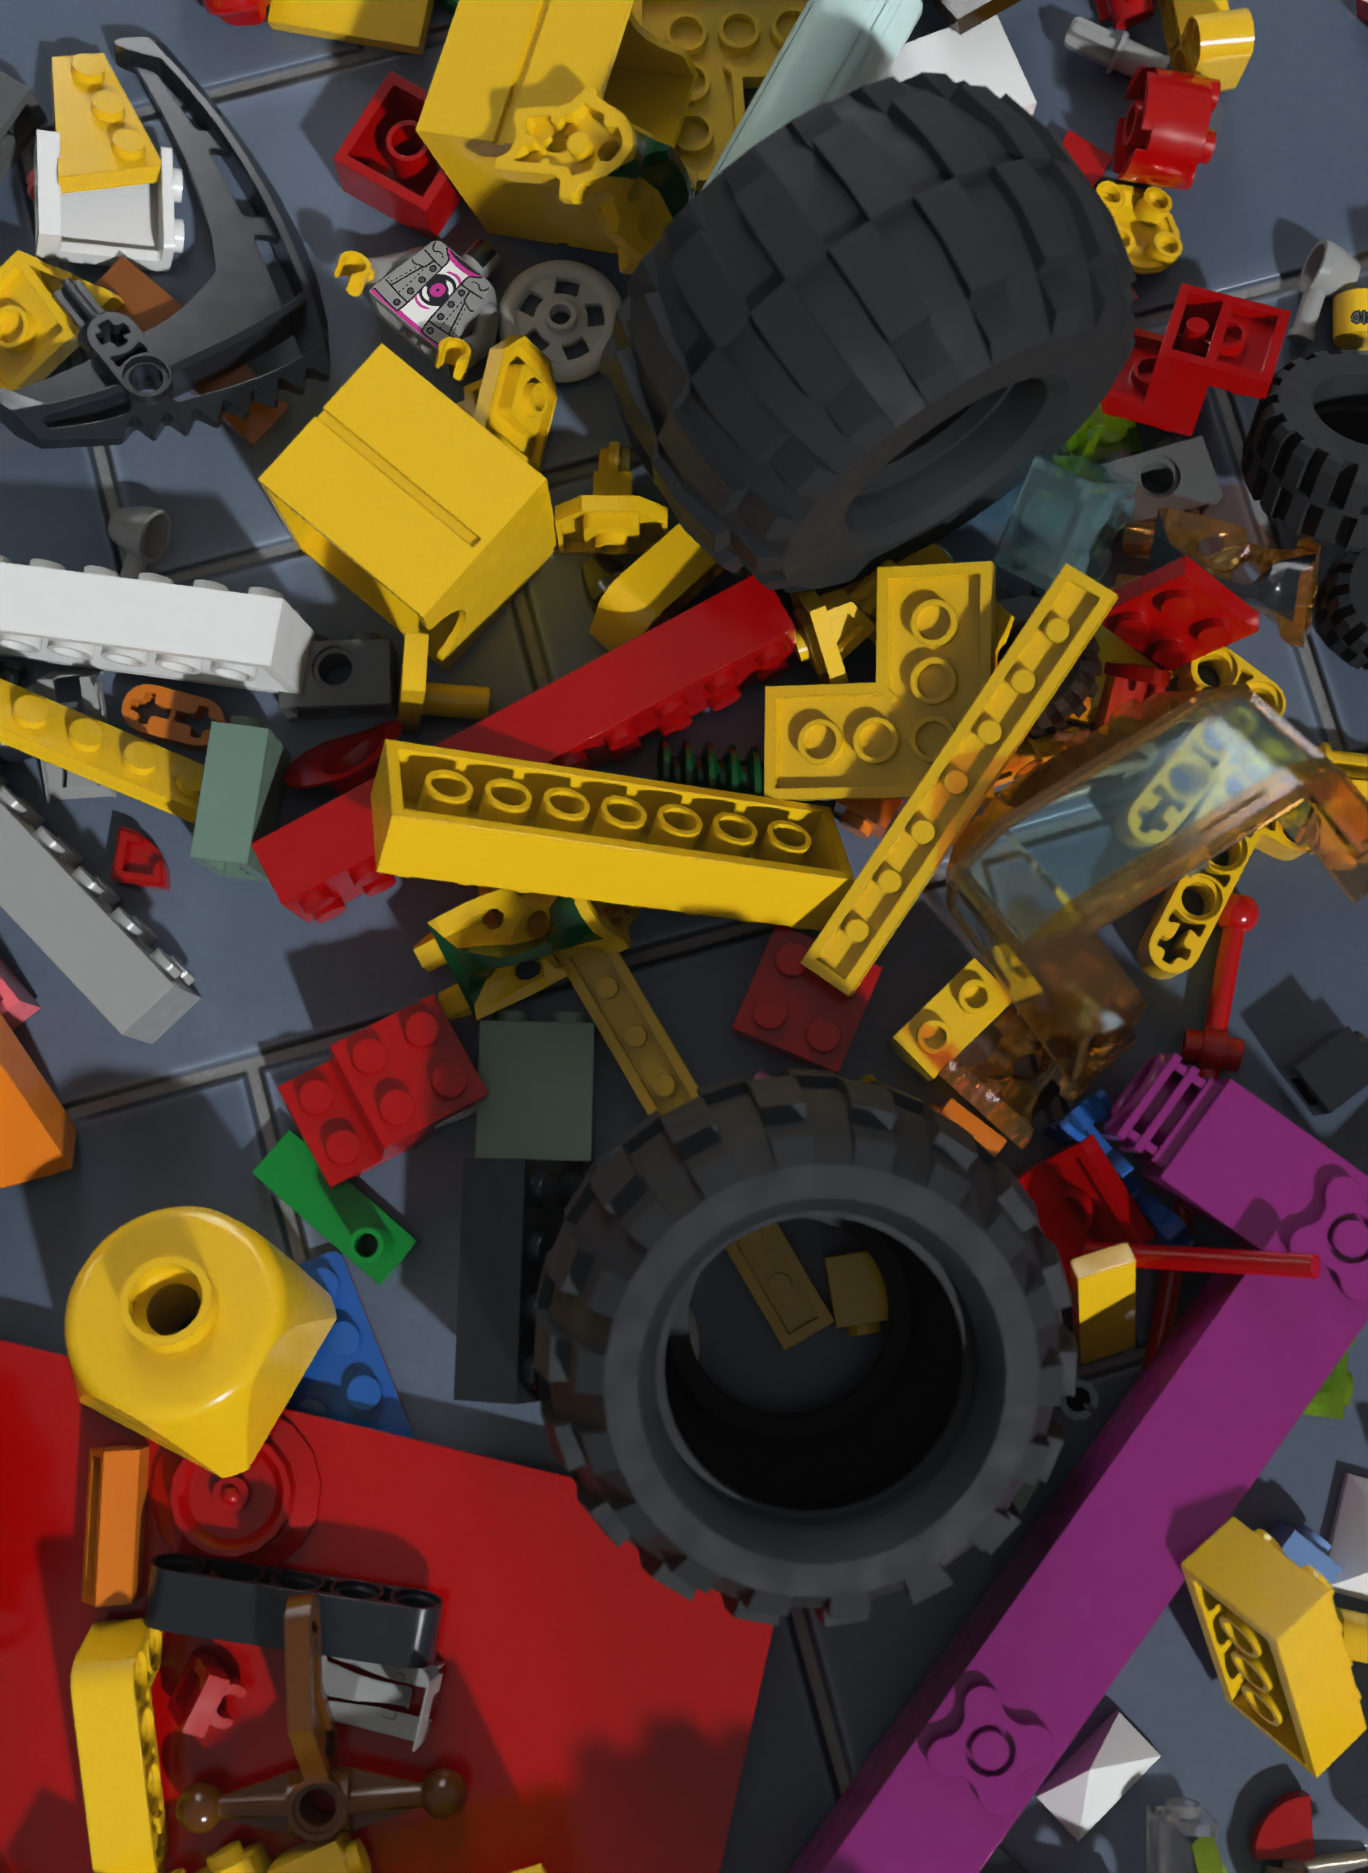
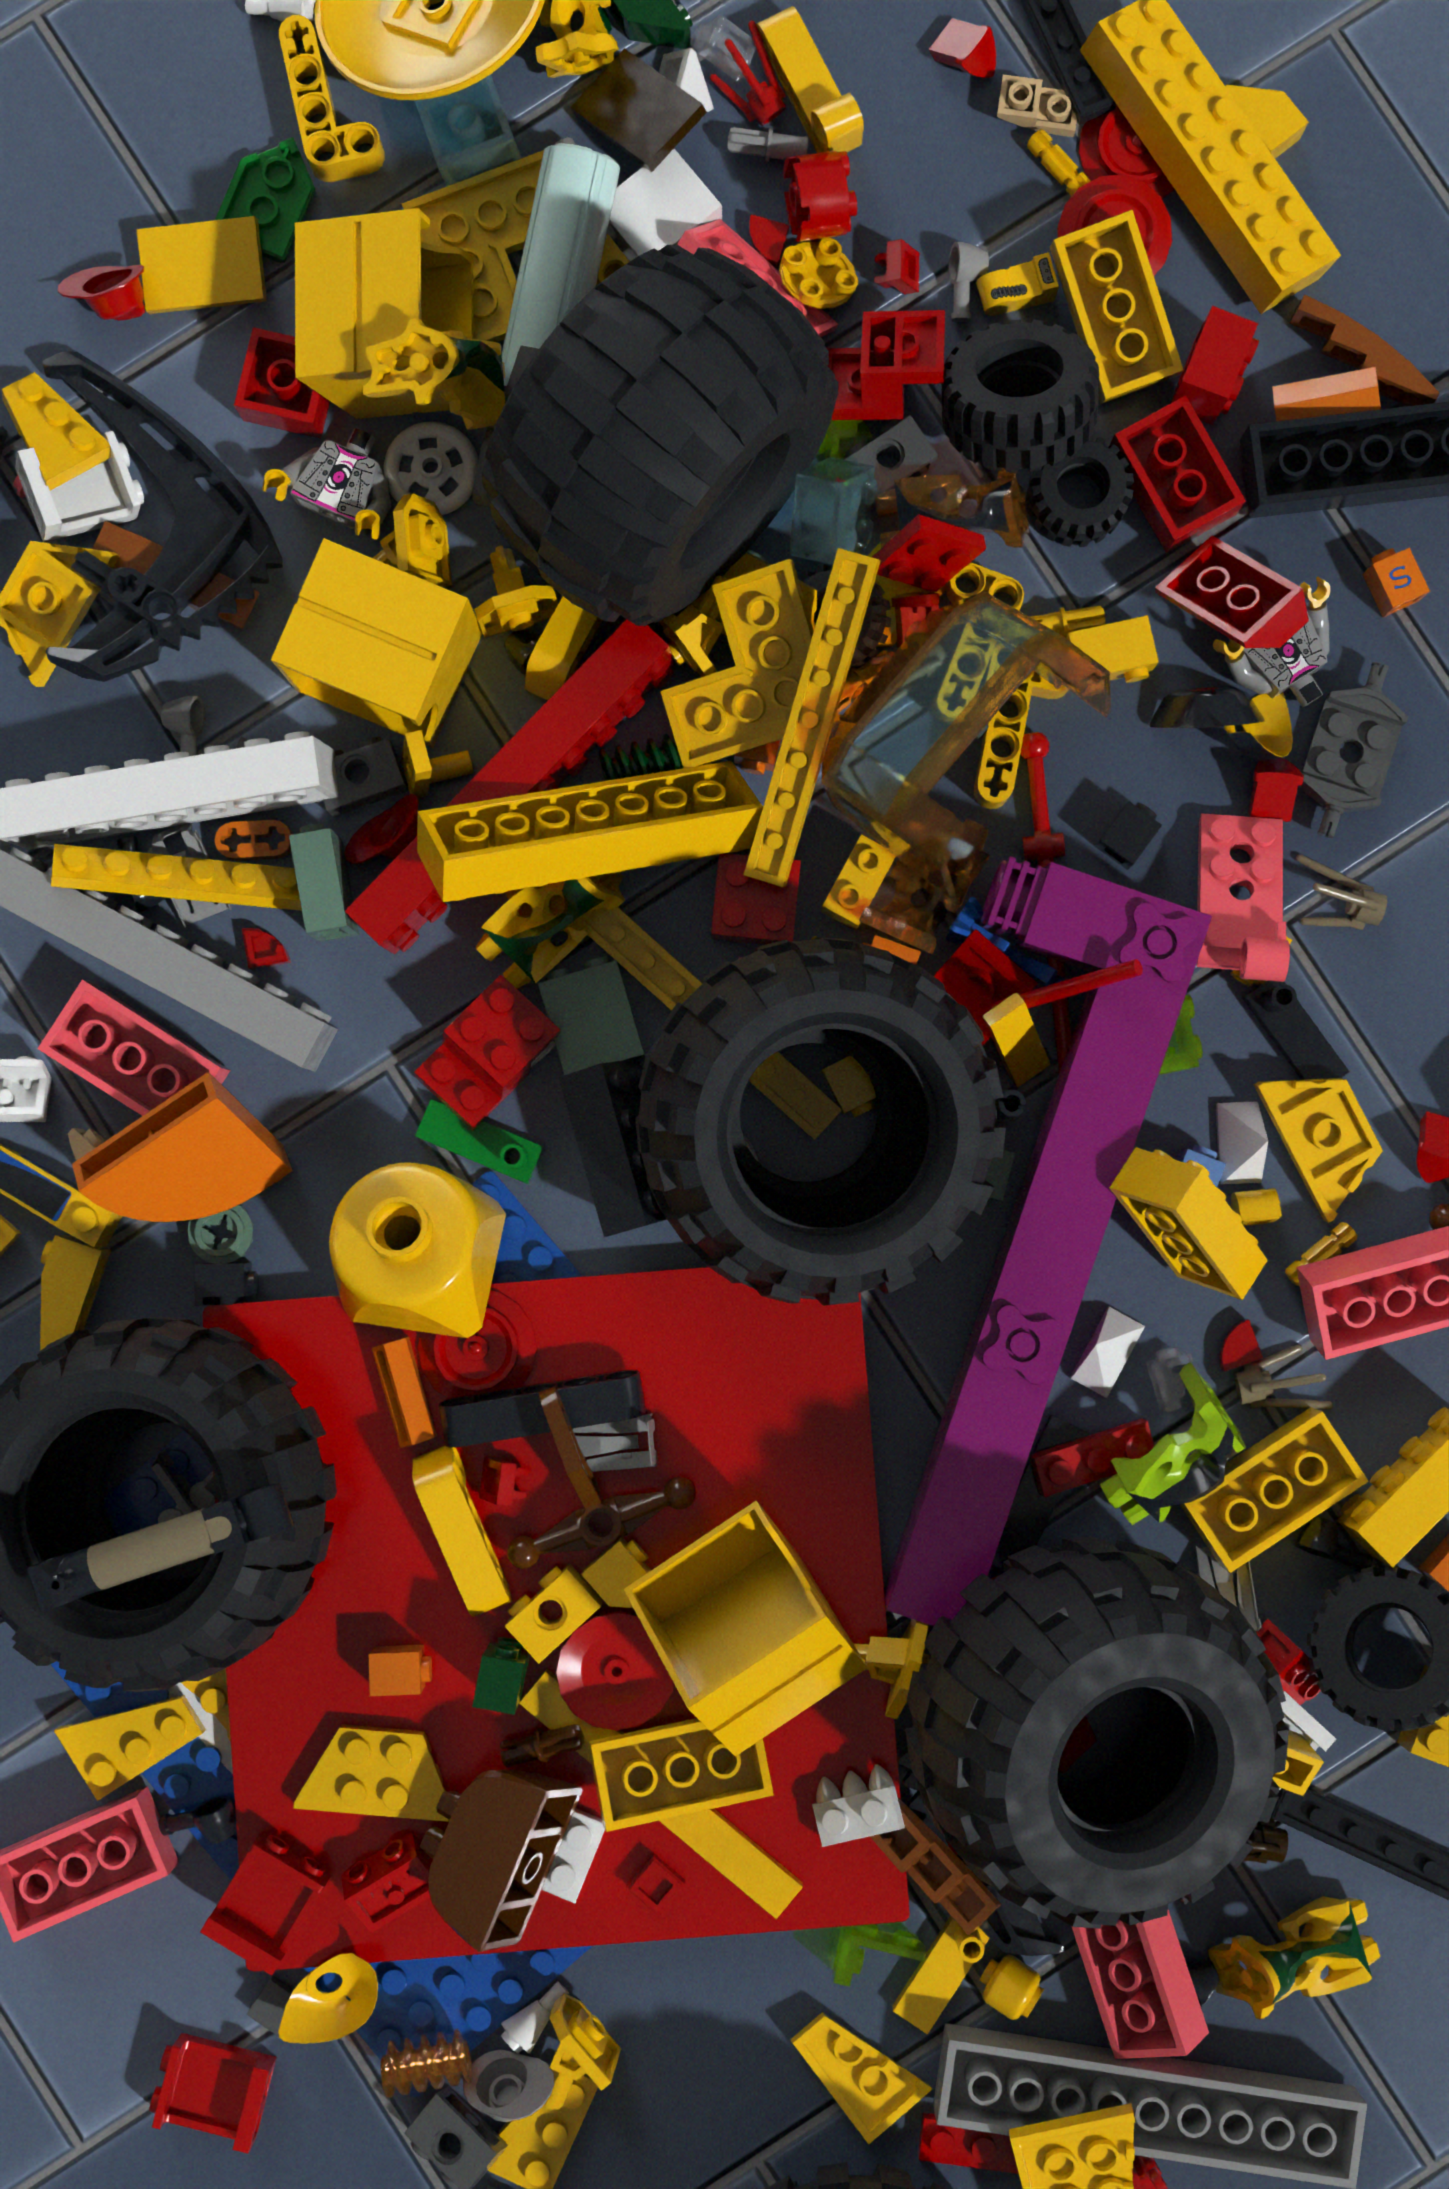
camera: 15 degrees left, 5 degrees up
(1243, 250) = (901, 267): none -> red tile

